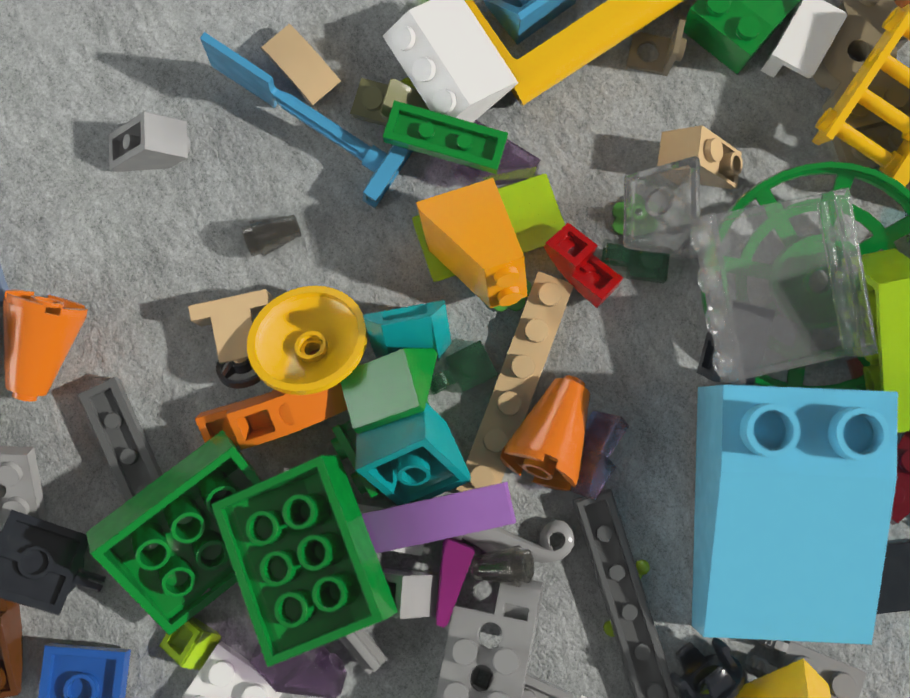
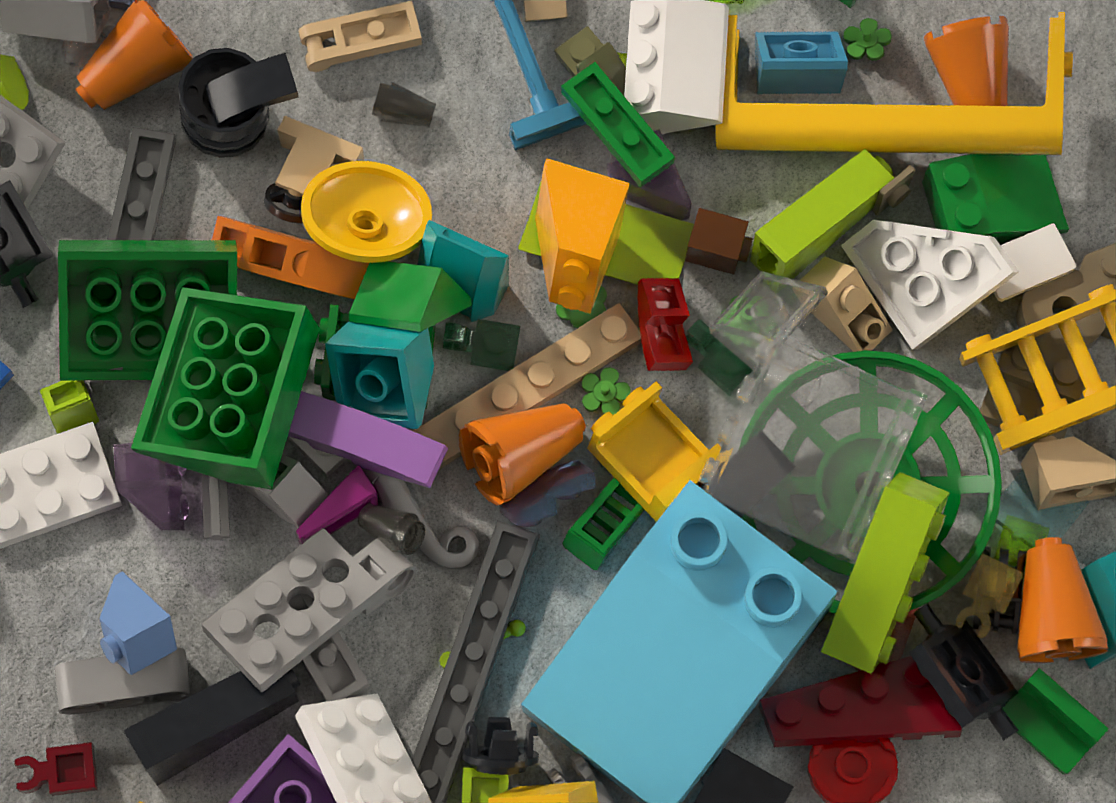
camera: 30 degrees right, 10 degrees down
(114, 315) = (196, 111): none -> black wheel
(146, 306) = (251, 88): none -> black slope
(198, 201) = (360, 35): none -> tan plate
(575, 345) = (604, 392): none -> bright green plant
(576, 174) = (718, 241): none -> reddish brown brick
(637, 471) = (591, 543): none -> green slope
(640, 104) = (820, 216): none -> lime slope
(650, 367) = (649, 450): none -> yellow panel
(748, 92) = (927, 273): none -> white plate

